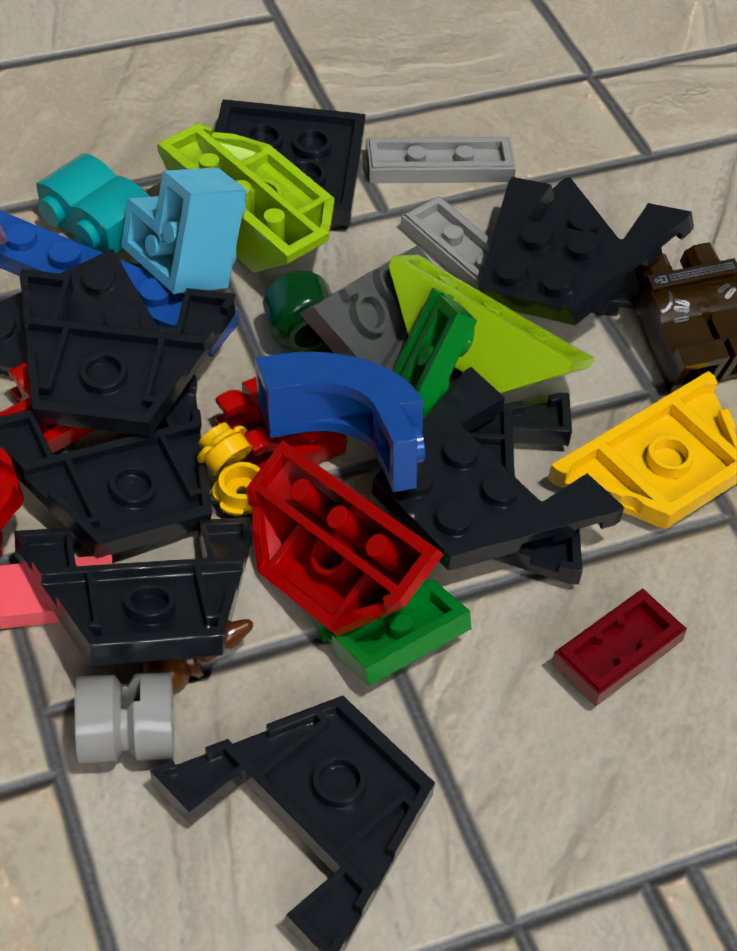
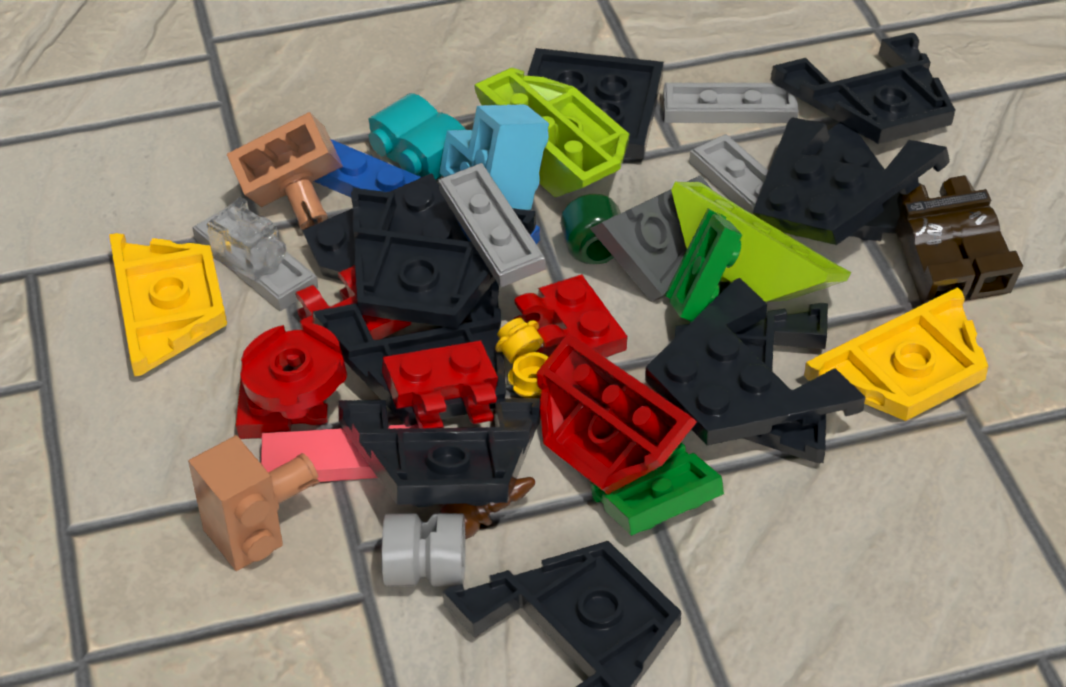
camera: 10 degrees right, 5 degrees down
(133, 495) = (441, 374): none -> red plate
(186, 312) = (492, 225): none -> light grey tile
(346, 397) = (626, 299): blue arch -> none
(602, 159) = (877, 103): none -> black wing
(618, 646) = (853, 513): dark red plate -> none

